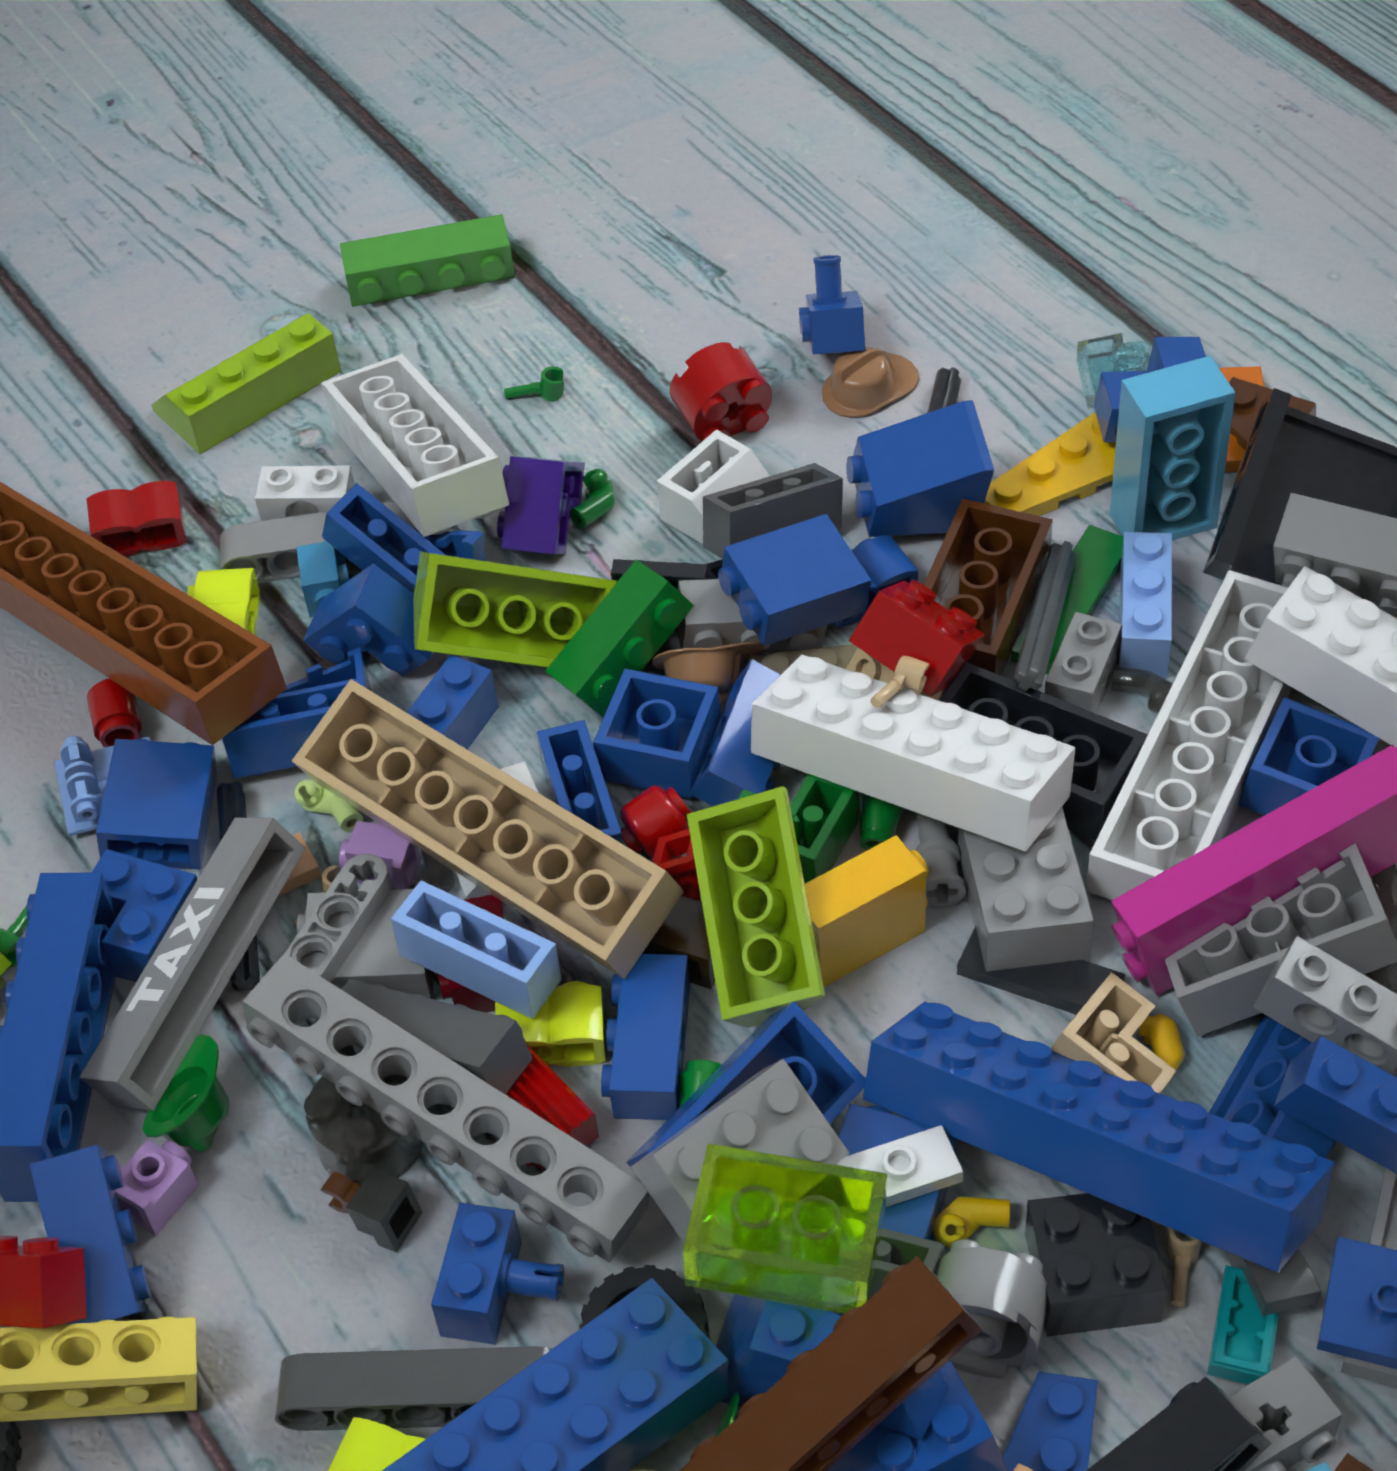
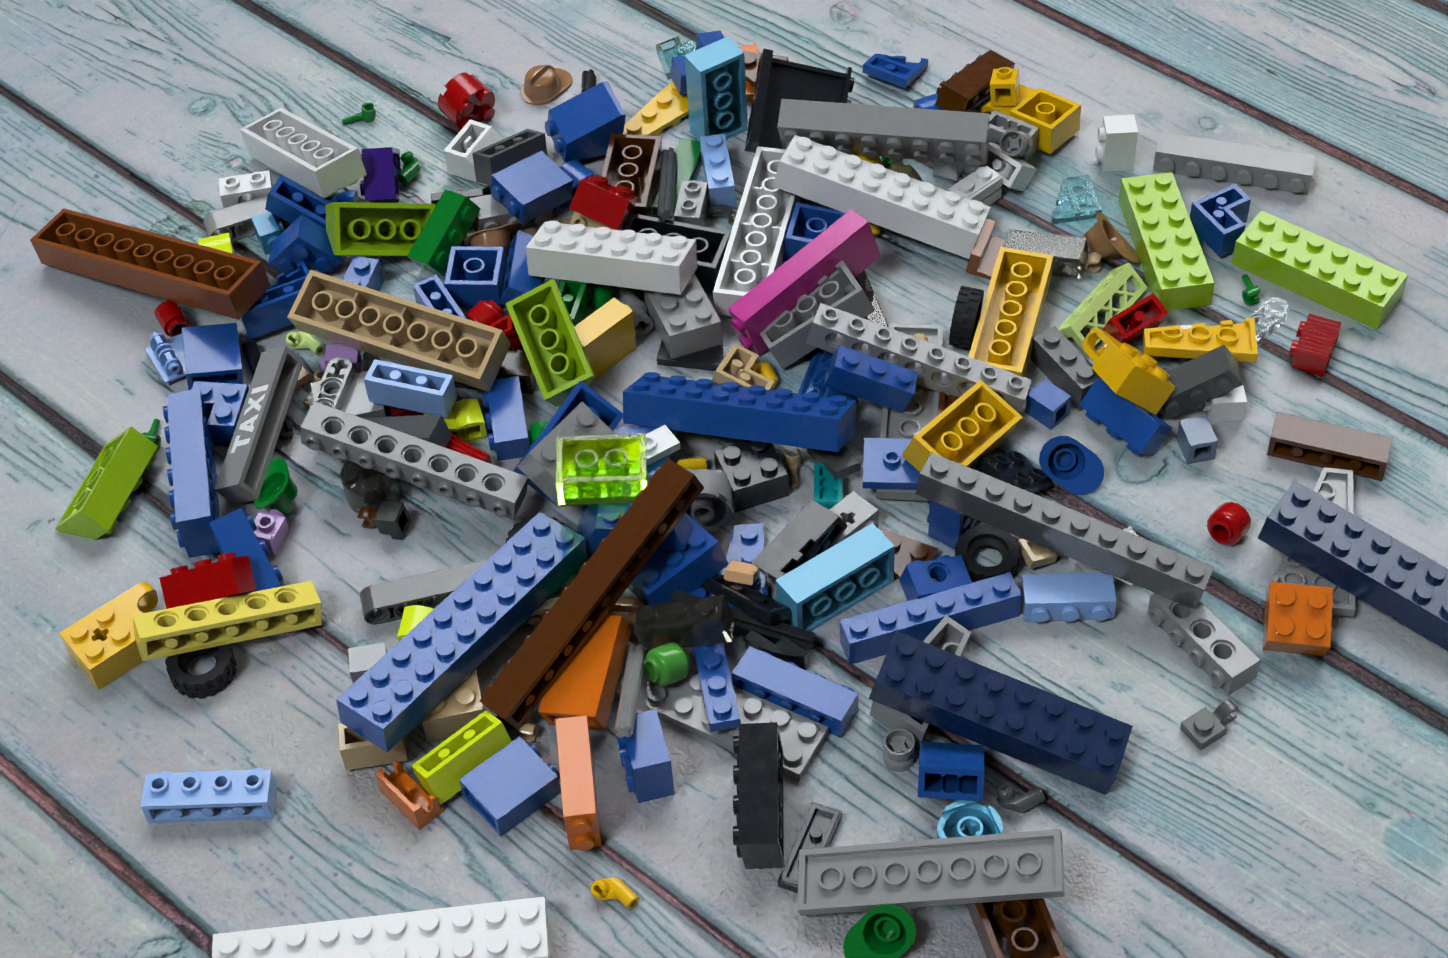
camera: 15 degrees left, 0 degrees up
(138, 518) = (155, 216): red brick -> none
(250, 384) = (194, 138): lime slope -> none
(427, 260) = (277, 56): bright green brick -> none
(482, 1272) = (451, 535): blue brick -> none
(832, 317) = (518, 52): blue brick -> none
(908, 674) = (604, 219): tan hand -> none

